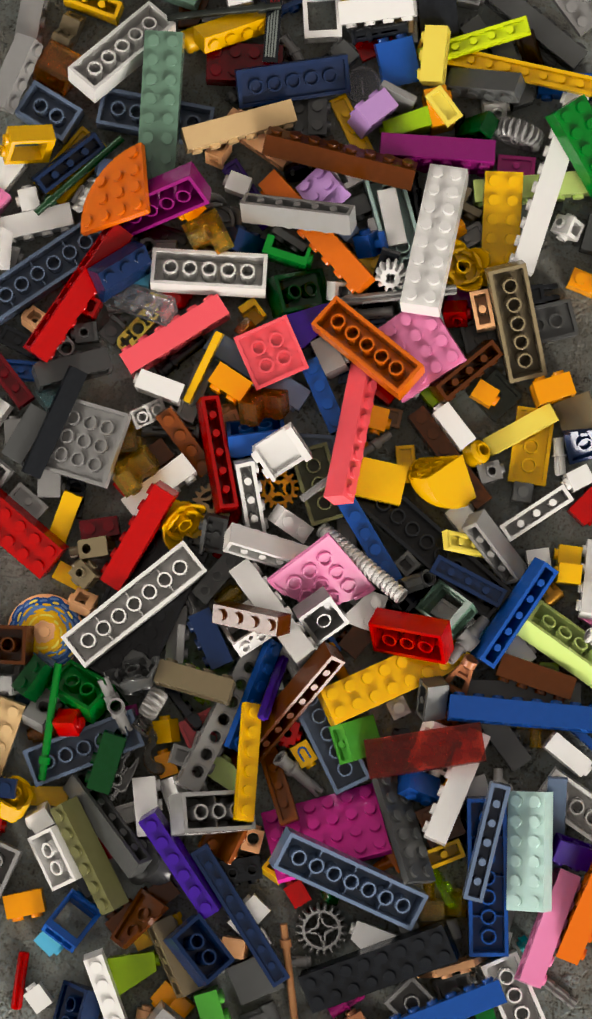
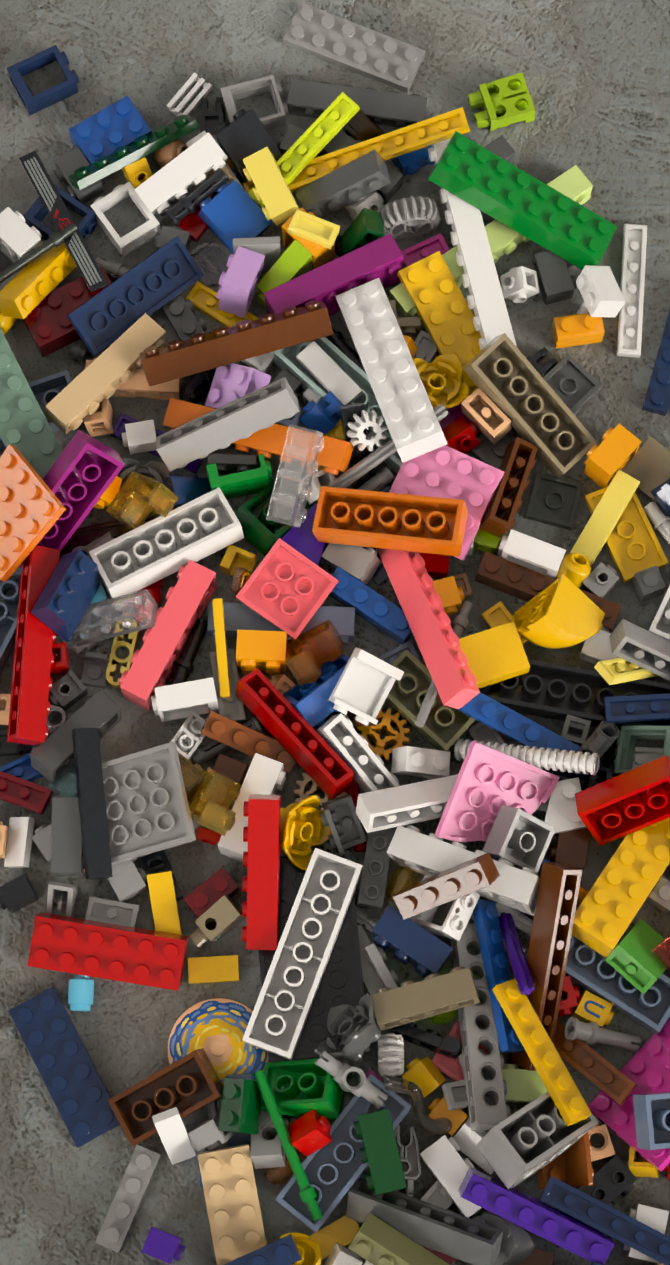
camera: 30 degrees left, 10 degrees down
(82, 602) = (241, 989): light nougat brick -> none
(84, 573) = (225, 954): dark tan brick -> none
(322, 277) = (295, 475): none -> clear brick
(485, 394) = (543, 502): light orange brick -> none

